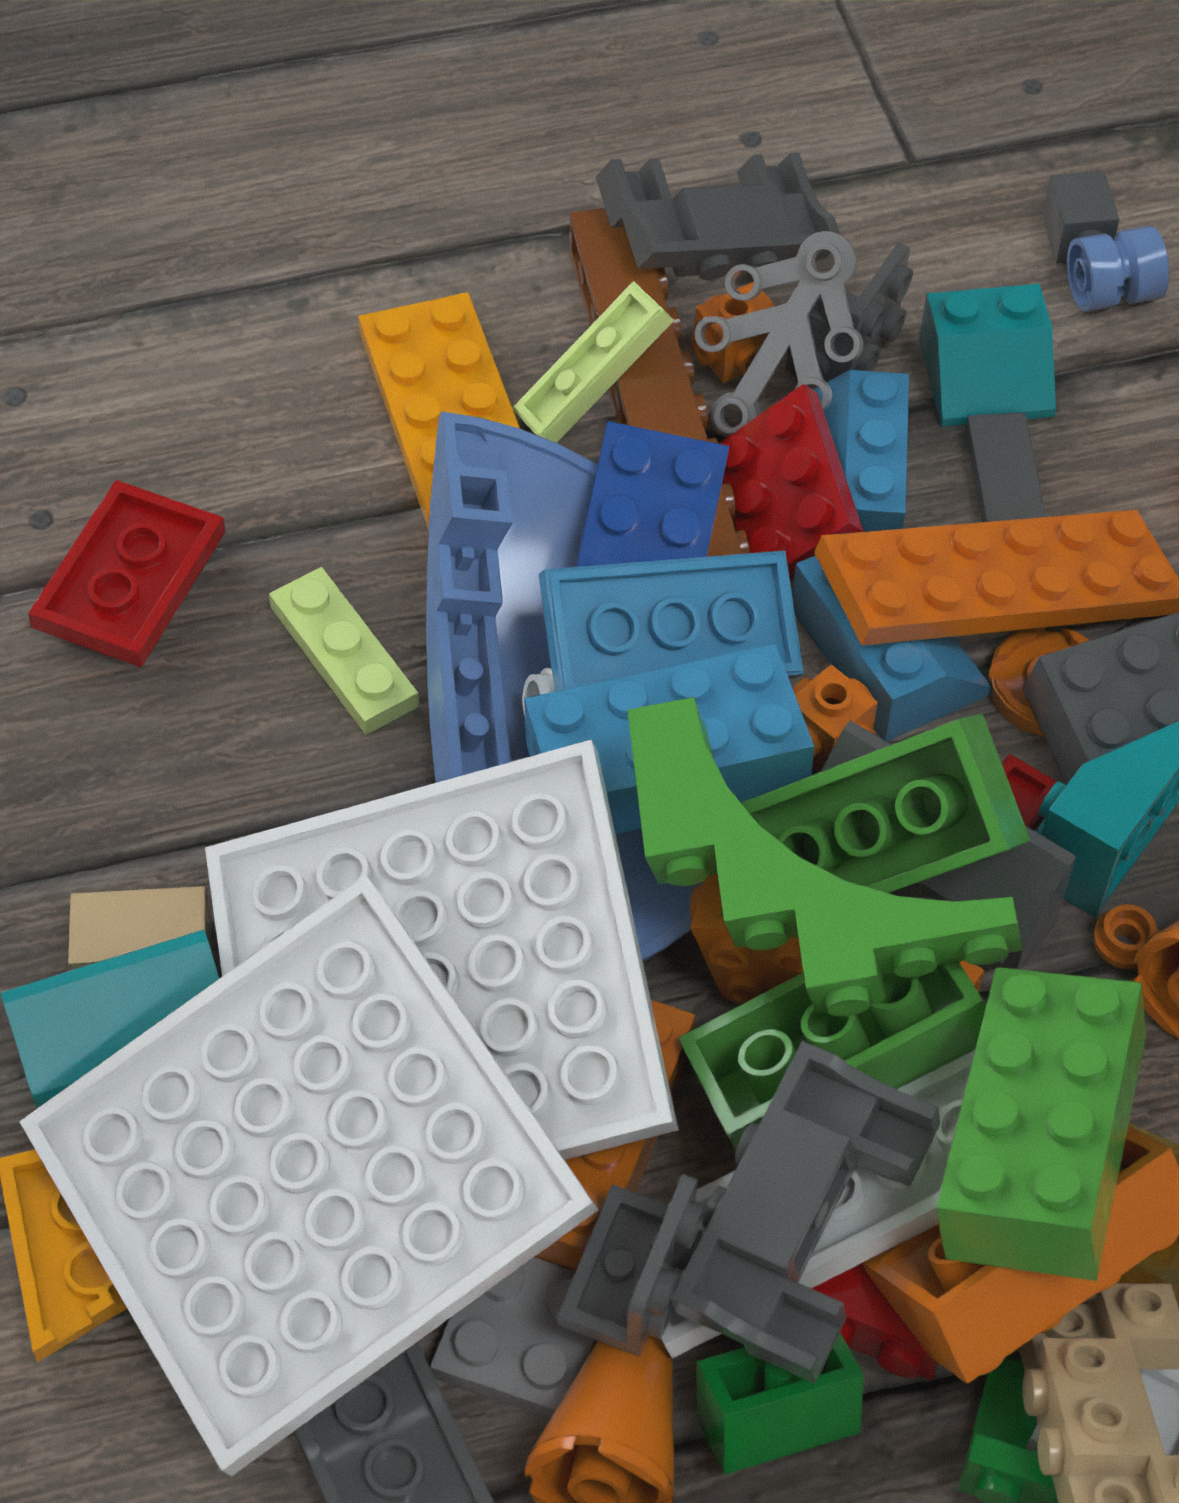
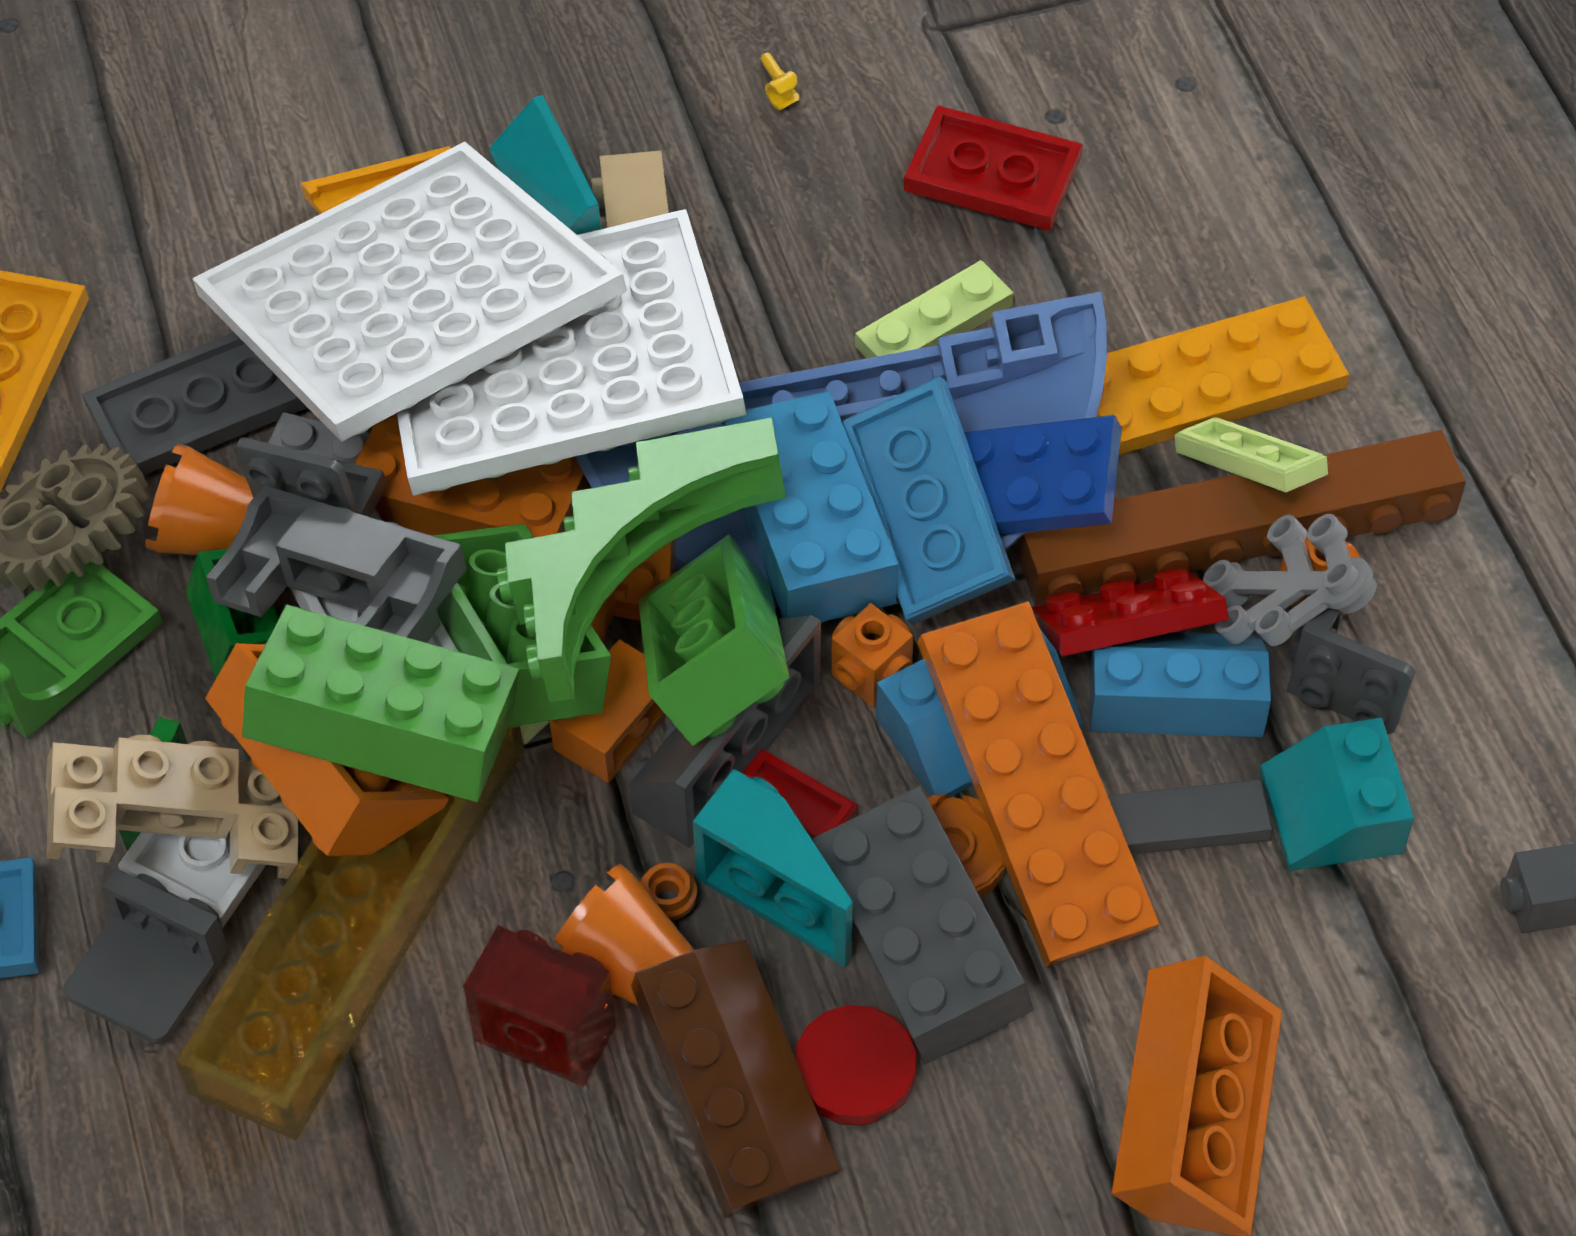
camera: 90 degrees right, 0 degrees up
(715, 226) = (1447, 557): dark grey bracket -> none
(1126, 267) = (1478, 922): medium blue wheel -> none

